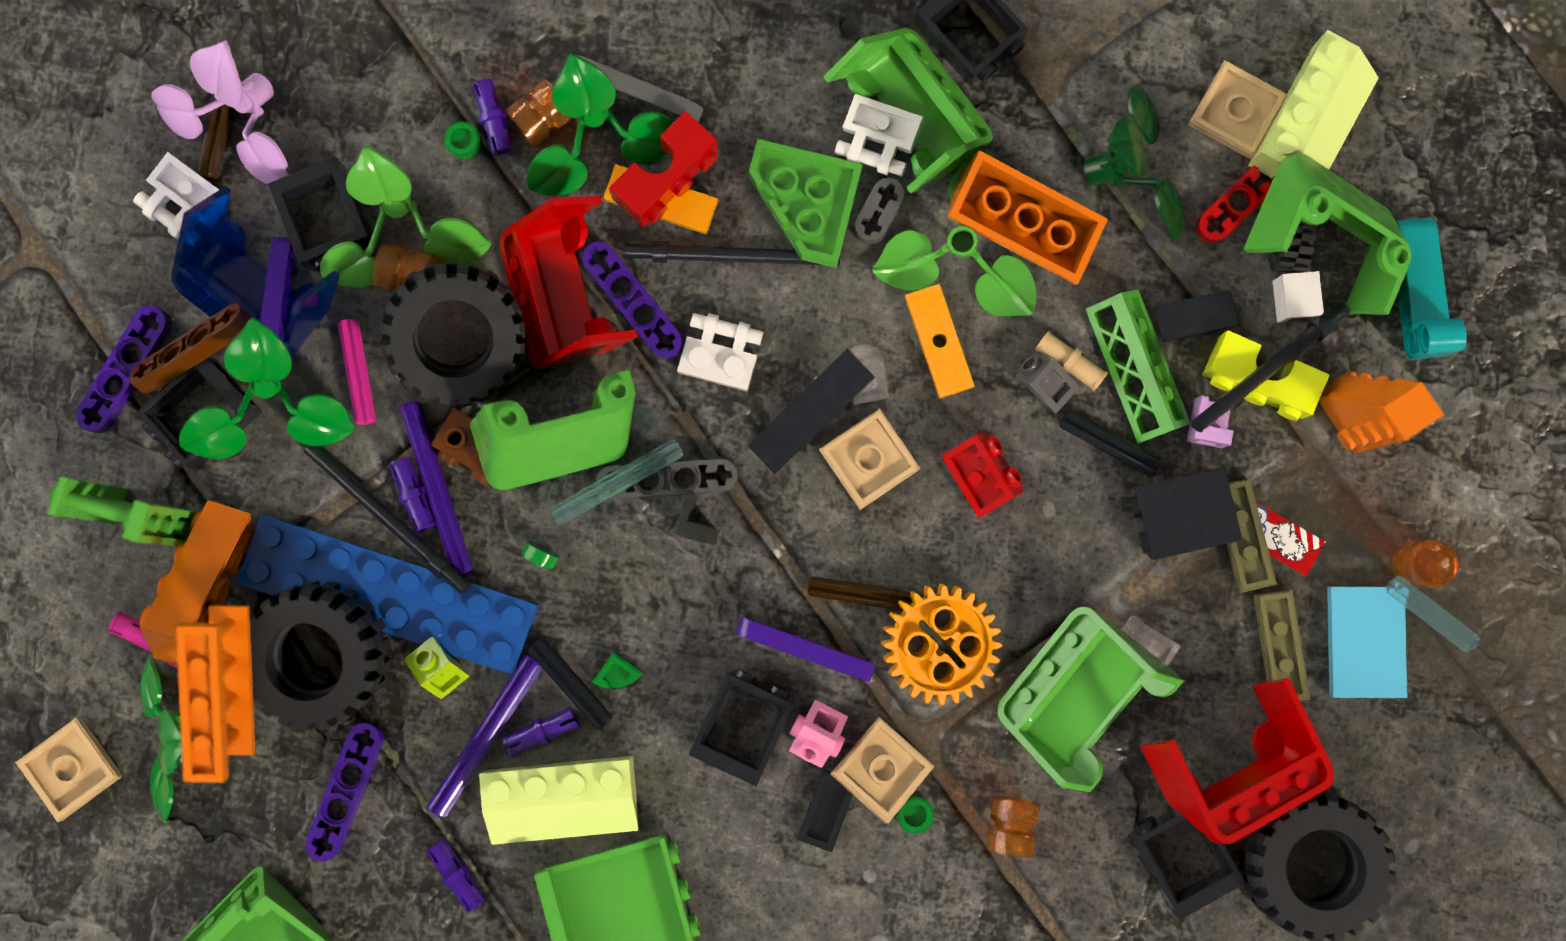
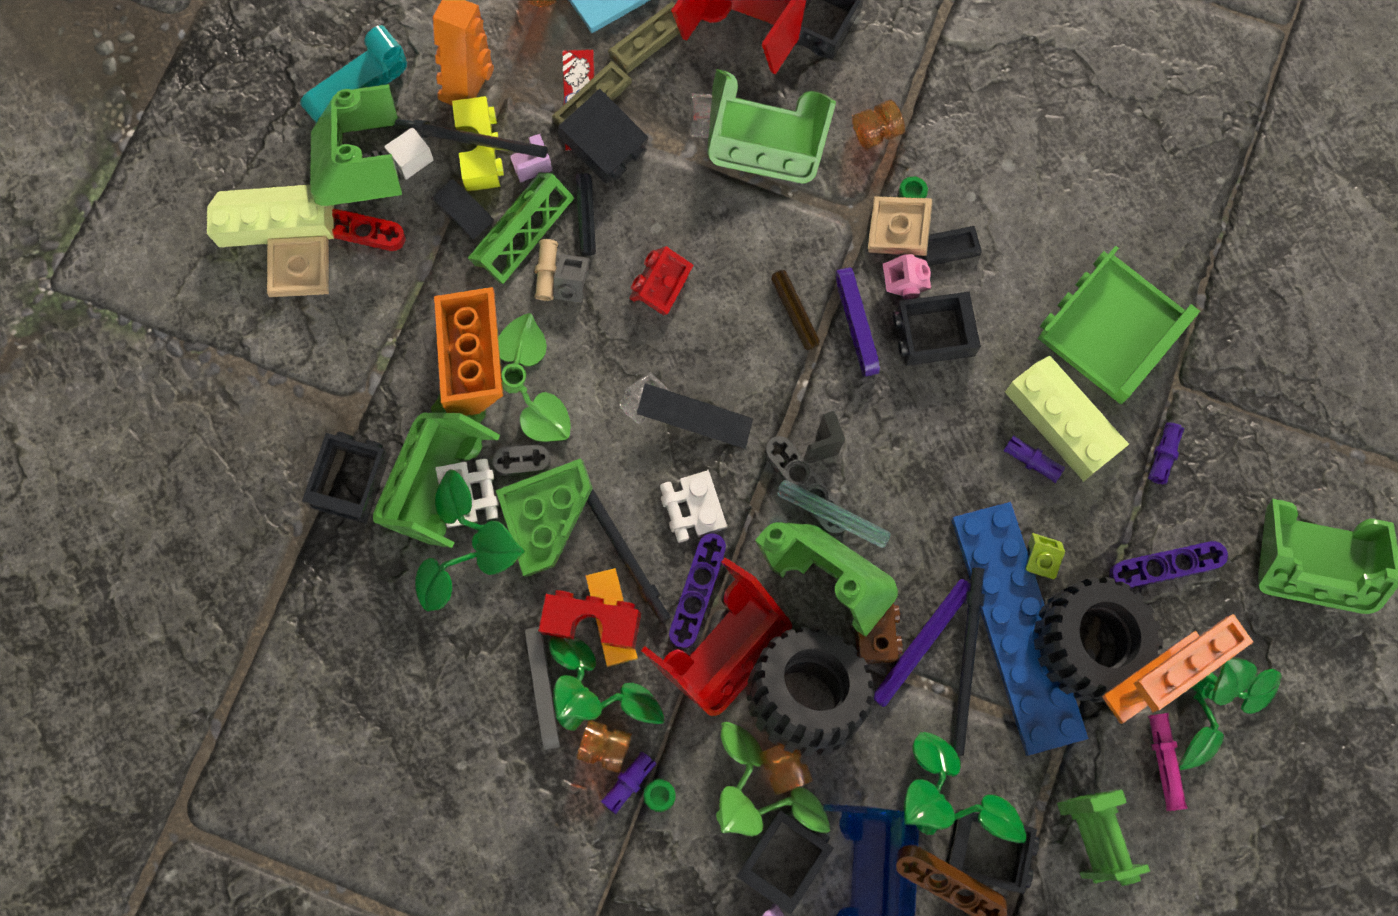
camera: 130 degrees left, 10 degrees down
(69, 769) = (1298, 769): tan plate -> none
(197, 576) = (1109, 758): orange wedge -> none
(278, 285) = (864, 849): dark purple beam -> none
(356, 371) = (880, 756): dark pink axle -> none
(412, 495) = (939, 654): dark purple pin -> none
(484, 736) = (1064, 494): dark purple axle -> none
(539, 555) = (918, 536): green tile -> none
(570, 683) = (988, 461): black axle -> none
(617, 673) = (959, 435): green tile -> none
(784, 106) = (493, 544): none -> green plant
(869, 459) = (701, 359): tan plate -> none
(919, 666) = (767, 231): light orange gear -> none
(933, 320) = (601, 350): light orange tile -> none
(1128, 153) = (383, 296): dark green plant -> none

